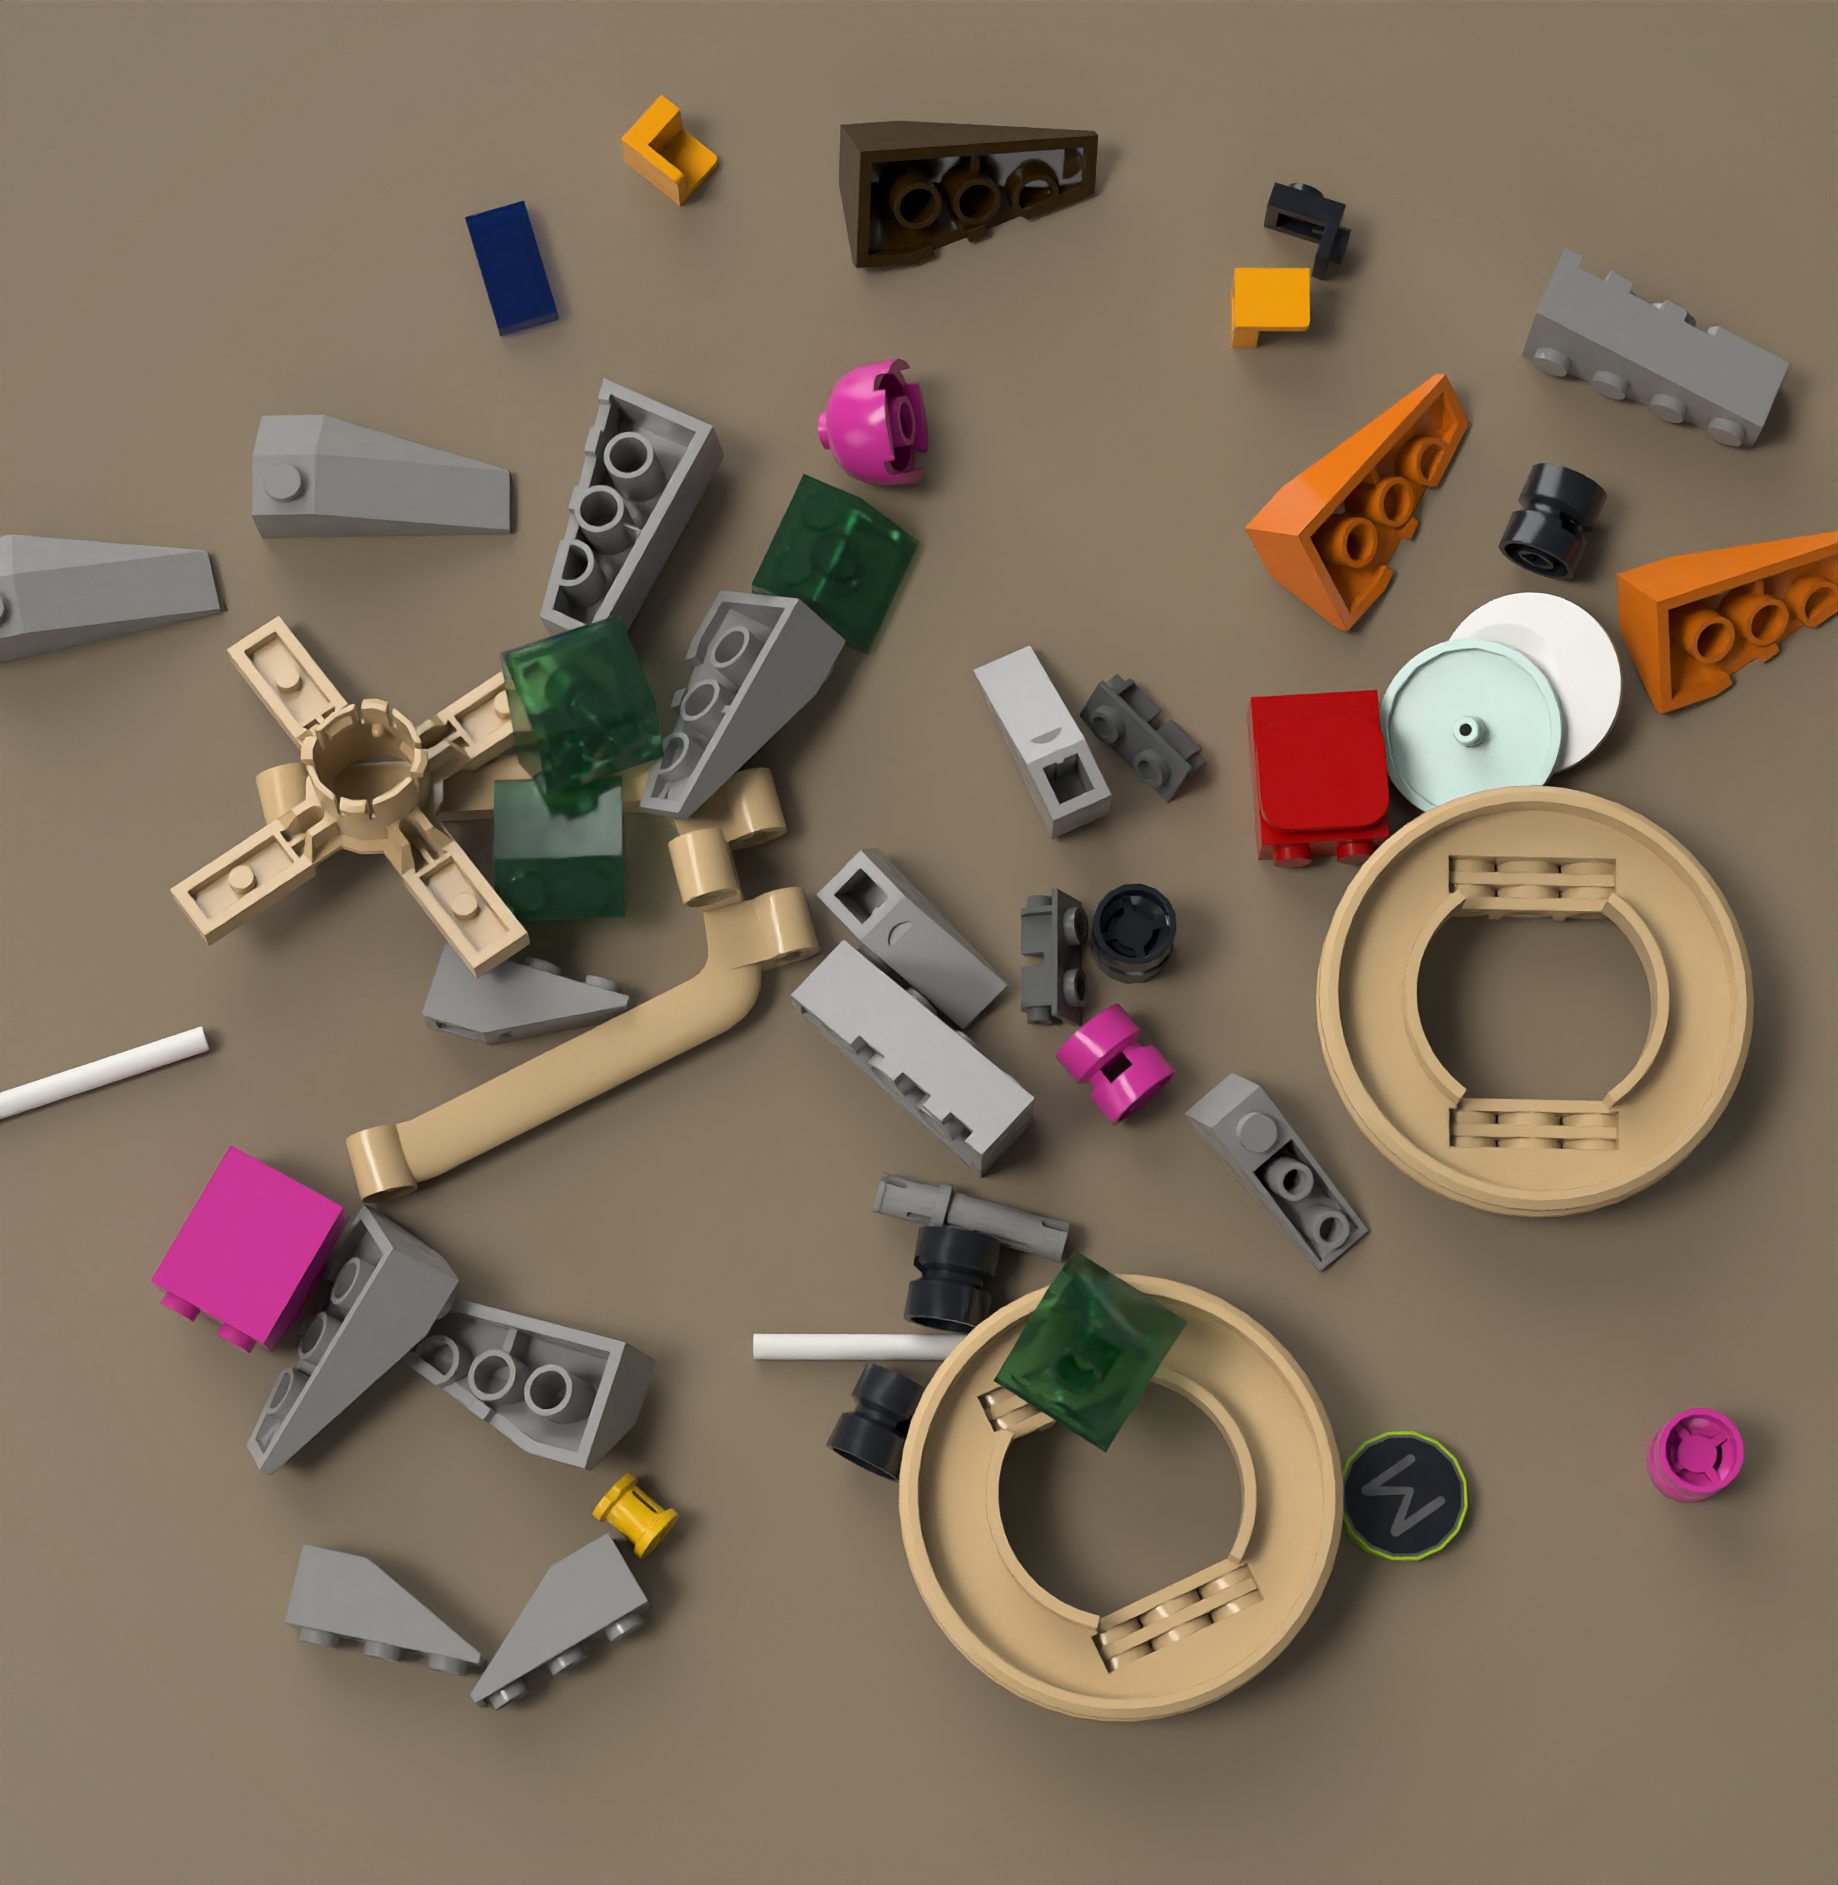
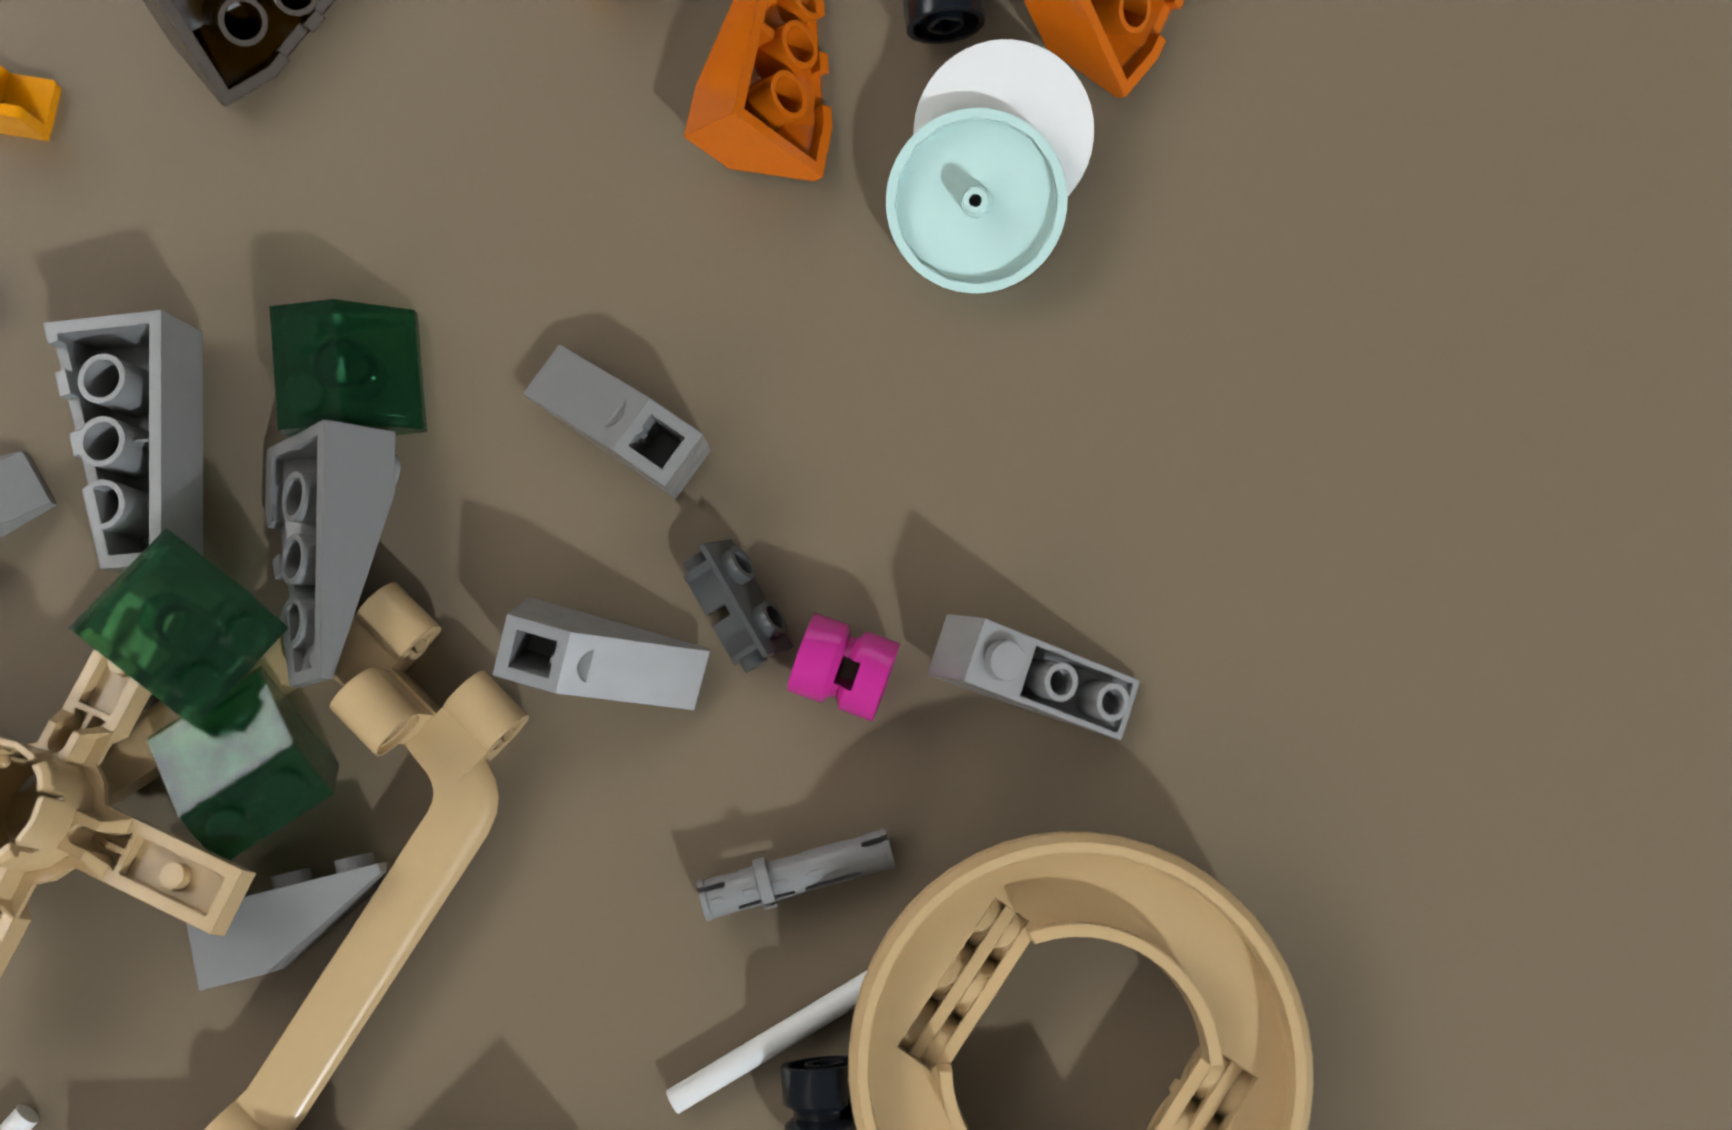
camera: 25 degrees left, 5 degrees up
(876, 424) = (314, 227): dark pink cylinder -> none
(915, 1056) = (663, 763): light grey wedge -> none
(952, 1279) = (813, 947): black wheel -> none
(1090, 1350) = (981, 959): clear green slope -> none
(1121, 717) = (673, 361): dark grey hinge -> none
(1133, 933) = (791, 542): black wheel -> none
(1318, 776) = (871, 314): red brick -> none
(1403, 1496) = (1310, 896): black tile -> none
(1534, 857) = (1117, 266): tan piece -> none
(1694, 1455) = (1557, 716): dark pink wheel -> none

